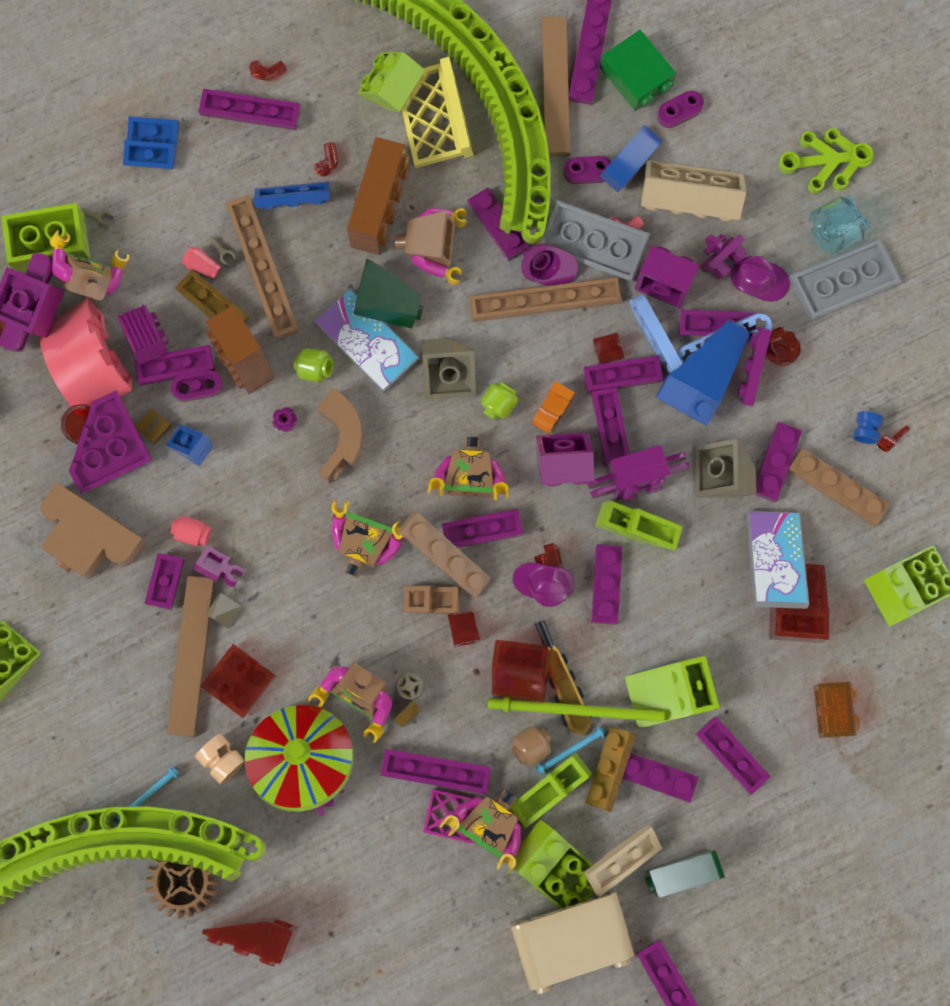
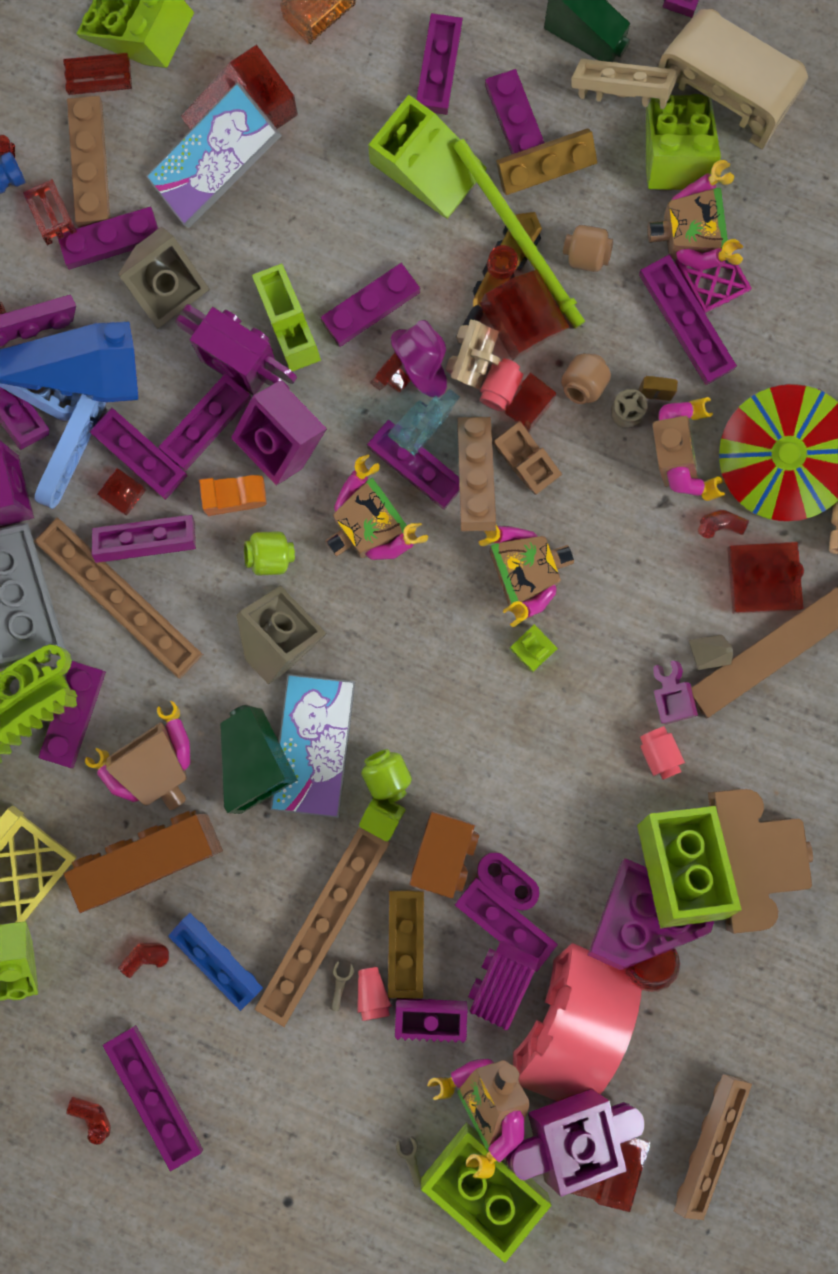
camera: 125 degrees left, 5 degrees up
(113, 485) = (688, 867): none -> lime brick
(151, 143) = (279, 1176): blue slope -> none
(153, 426) = (587, 890): pearl gold tile -> none
(159, 281) = (431, 1019): none -> magenta brick
(164, 581) = (733, 735): magenta plate -> none
(190, 444) = (575, 833): blue slope -> none
(289, 424) = (476, 762): magenta plate -> none
(291, 343) = (382, 818): none -> lime slope
(295, 686) = (719, 520): none -> clear red arm
(315, 510) = (533, 648): none -> lime tile
(343, 415) = (424, 678): medium nougat arch -> none
(450, 675) = (585, 378): none -> medium nougat head
(489, 620) = (501, 384): none -> coral brick
(503, 549) = (422, 422): none -> clear light blue bracket
(519, 616) = (474, 354): none -> tan hips
(548, 265) = (78, 620): magenta piece -> none
(551, 790) = (610, 200): lime slope -> none
(561, 691) = (501, 251): none -> clear red bush
(567, 338) = (143, 538): none -> magenta plate
(599, 733) = (520, 200): medium azure axle -> none
(801, 431) = (58, 228): none -> clear red tile
(905, 519) = (97, 68): none -> clear red tile

